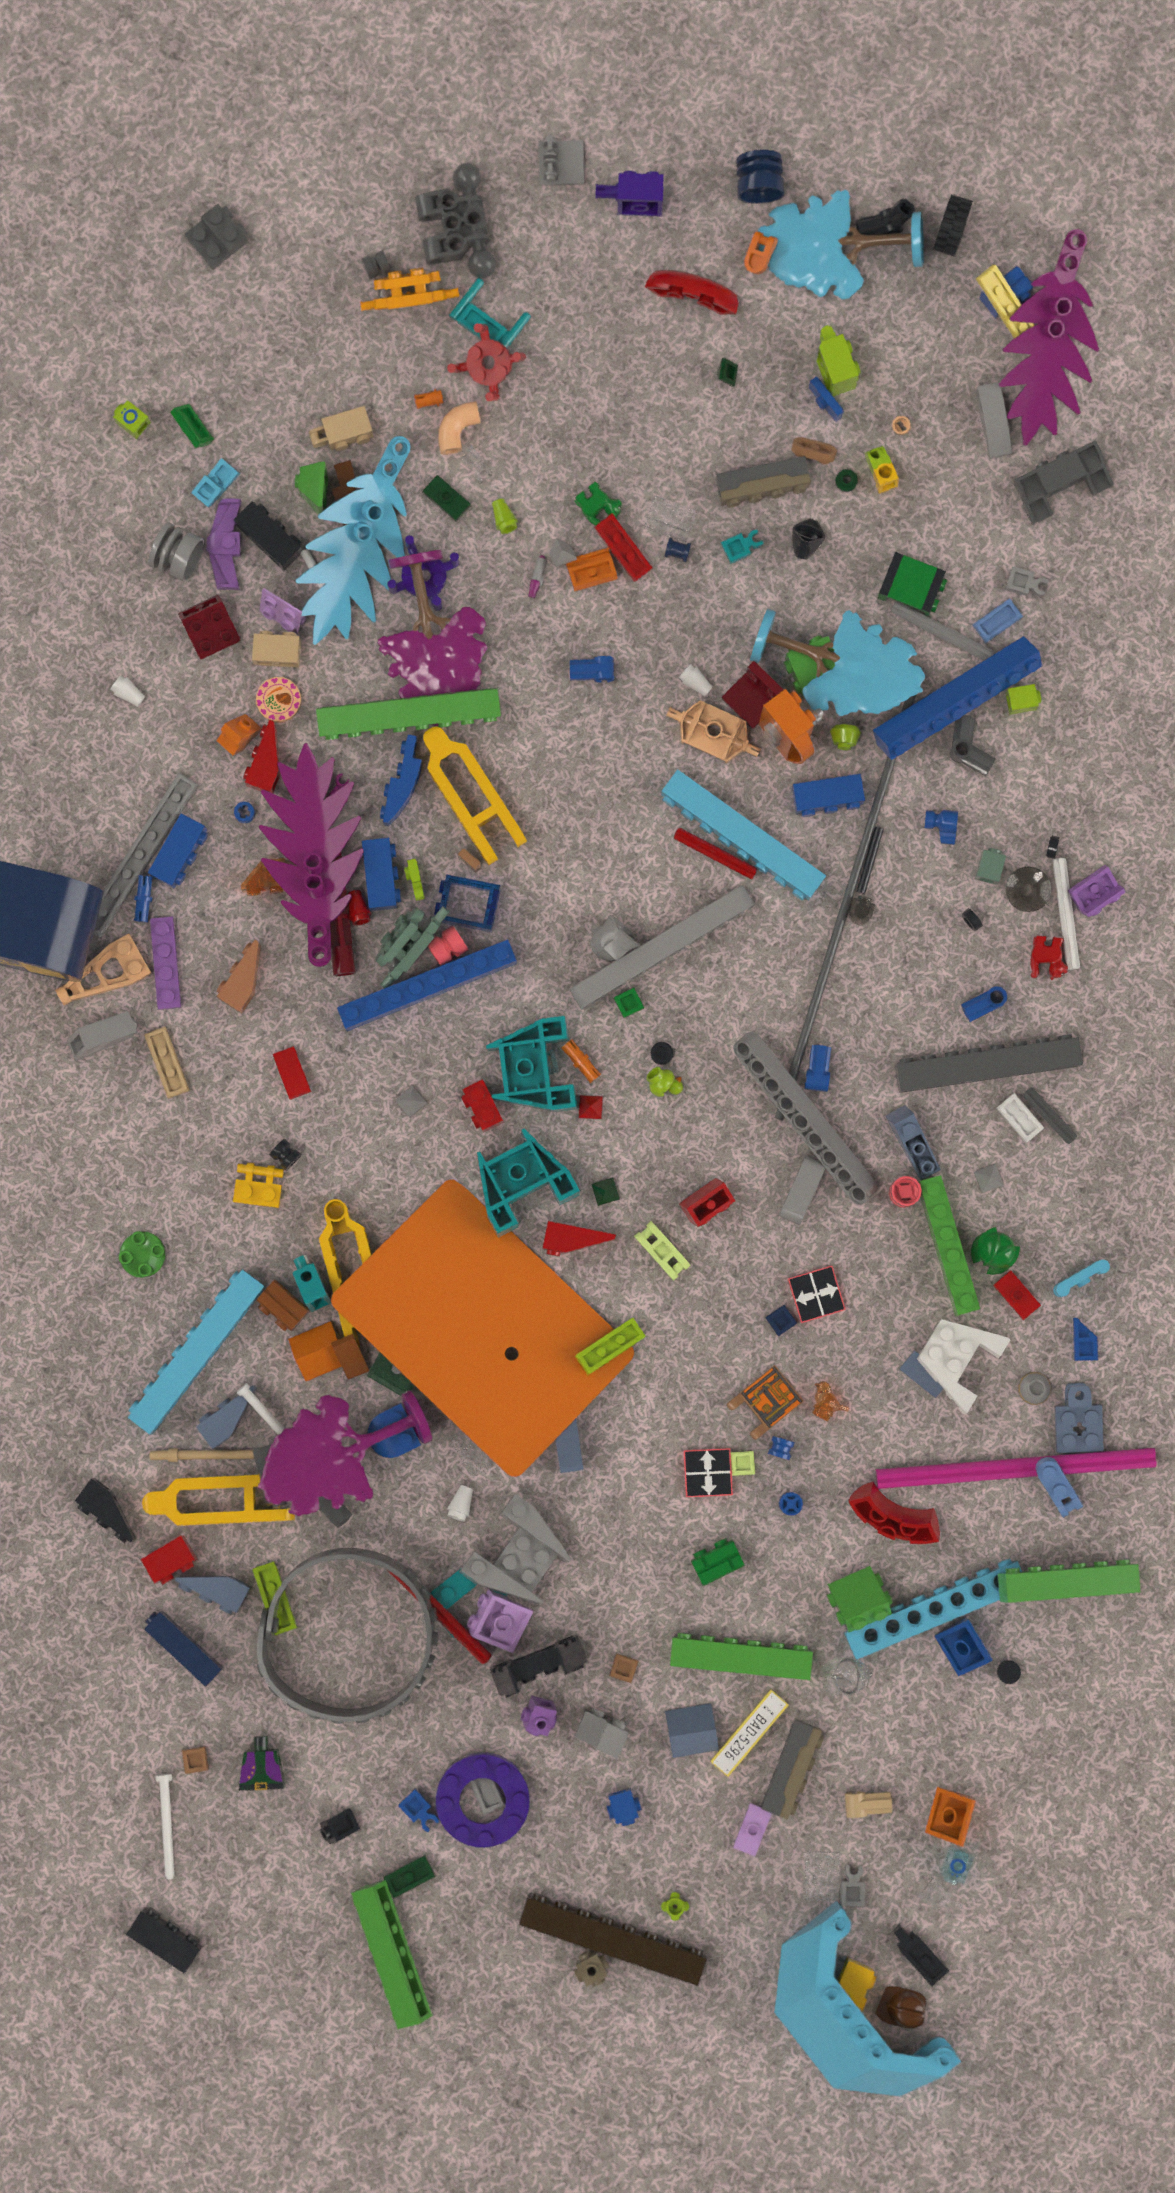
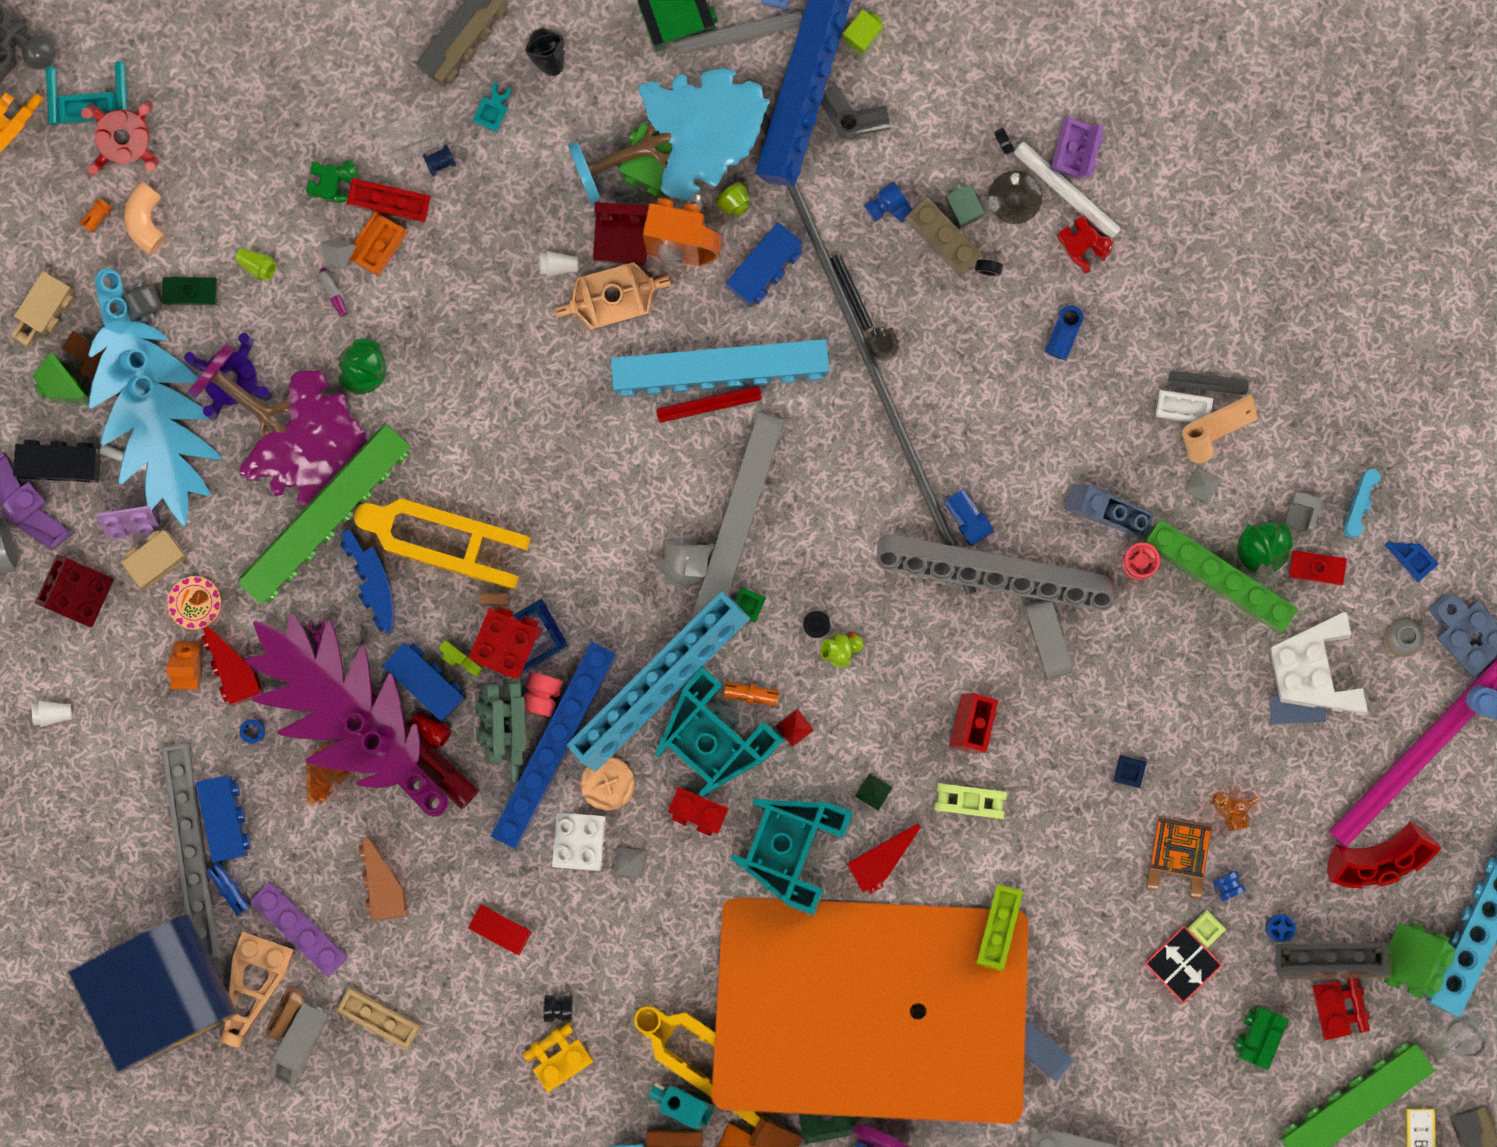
camera: 35 degrees left, 0 degrees up
(104, 1010) = (287, 1007): none -> medium nougat plate
(390, 1060) = (579, 841): none -> white hinge
(410, 478) = (142, 301): none -> dark grey head
(440, 1039) = (608, 786): none -> light nougat tile
(452, 891) = (505, 641): none -> red bracket
(514, 640) = (362, 367): none -> green helmet
(528, 1001) = (658, 681): none -> medium azure brick
(594, 669) = (459, 330): blue piece -> none
(778, 1585) = (1332, 1010): none -> red plate
(805, 1552) = (1333, 960): none -> dark grey piece
(816, 1294) = (1140, 721): black tile -> none
(959, 873) = (943, 236): none -> dark tan brick
(989, 1064) = (1114, 386): dark grey brick -> none
(1018, 1143) = (1201, 433): none -> light nougat door
(1038, 1251) = (1303, 512): none -> light grey panel

